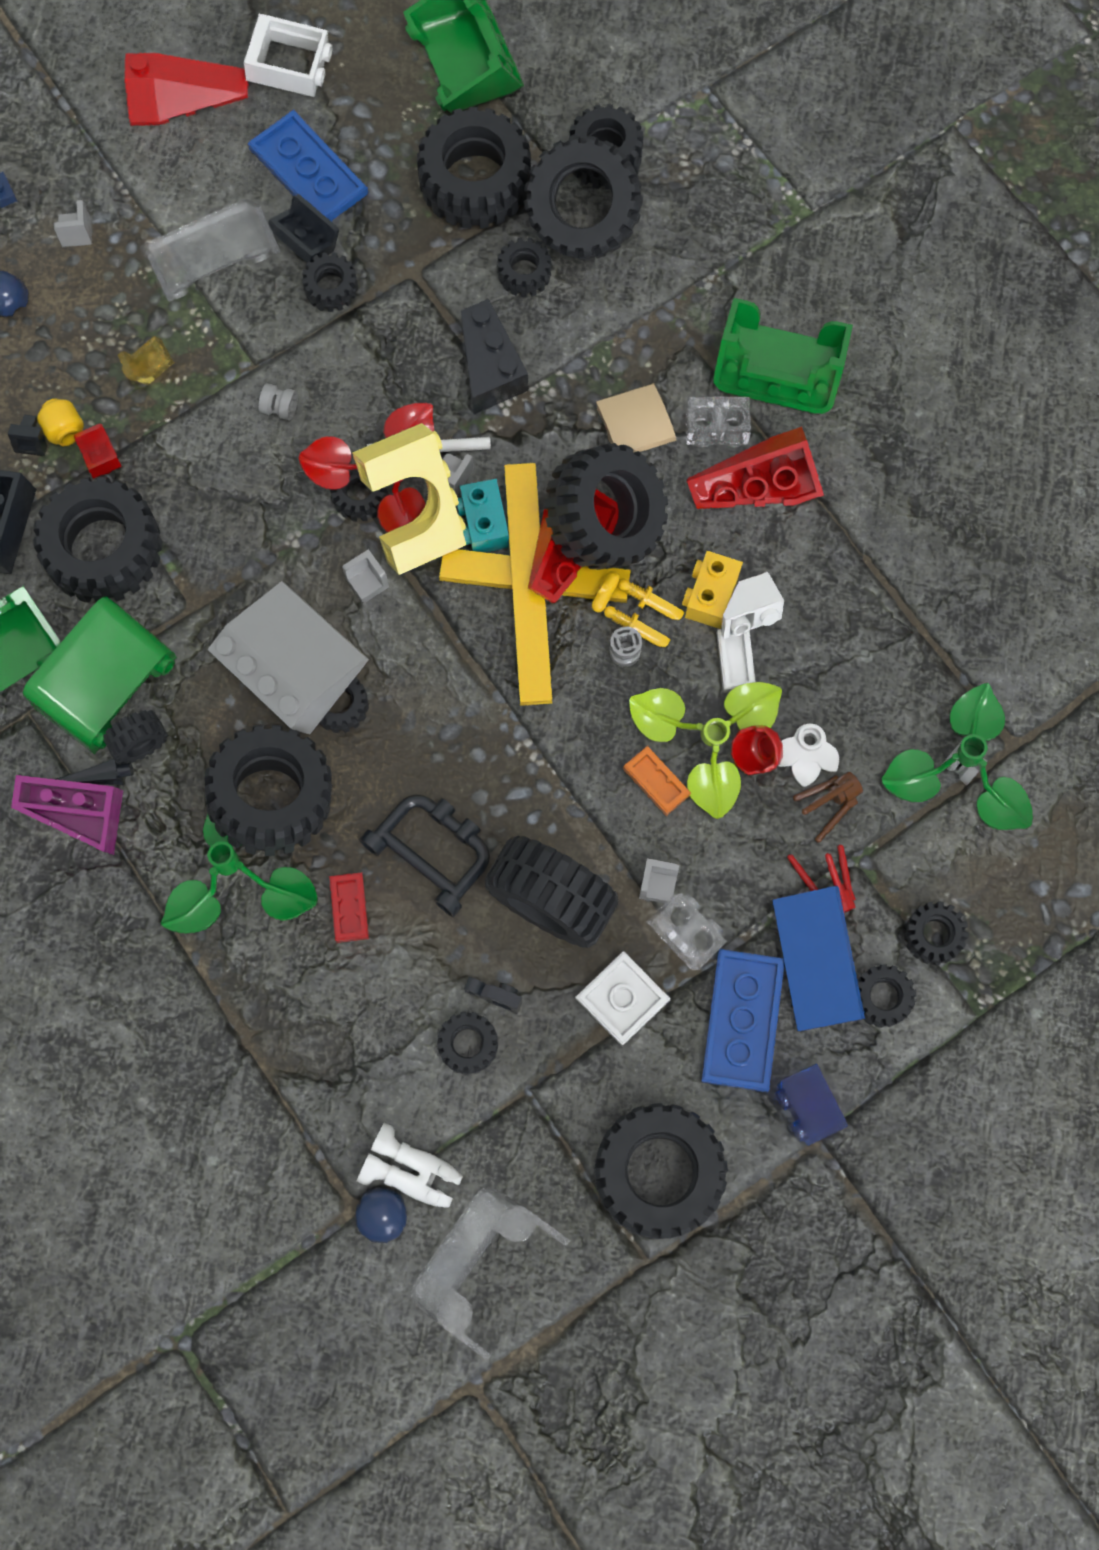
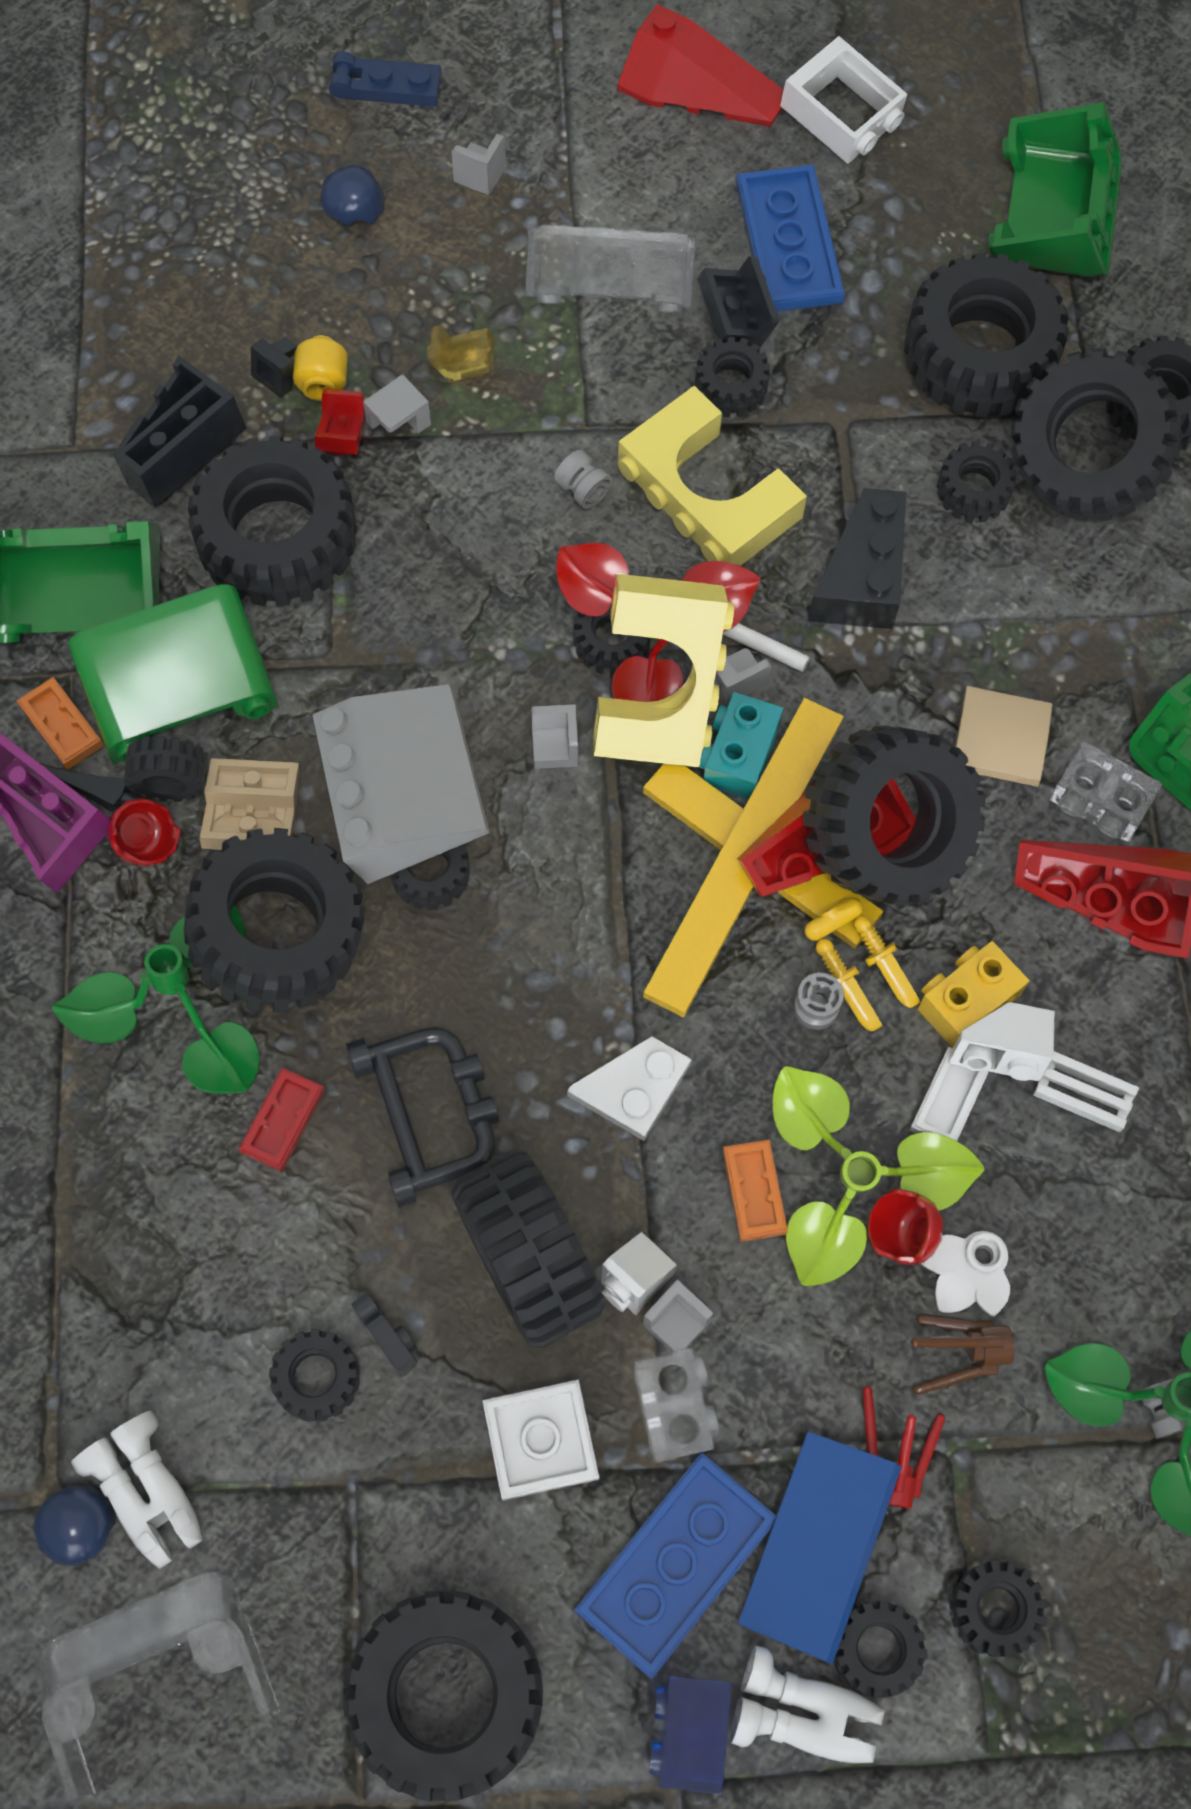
camera: 30 degrees right, 5 degrees down
(44, 748) = (60, 723): none -> orange plate
(128, 420) = (396, 405): none -> light grey panel
(147, 785) = (143, 832): none -> red hair
(198, 727) = (247, 798): none -> tan slope
(387, 385) = (725, 528): none -> light yellow arch
(546, 762) = (633, 1086): none -> white wing
(620, 869) = (636, 1274): none -> white slope
(811, 597) = (1091, 1075): none -> white tile
(873, 1041) = (827, 1700): none -> white piece

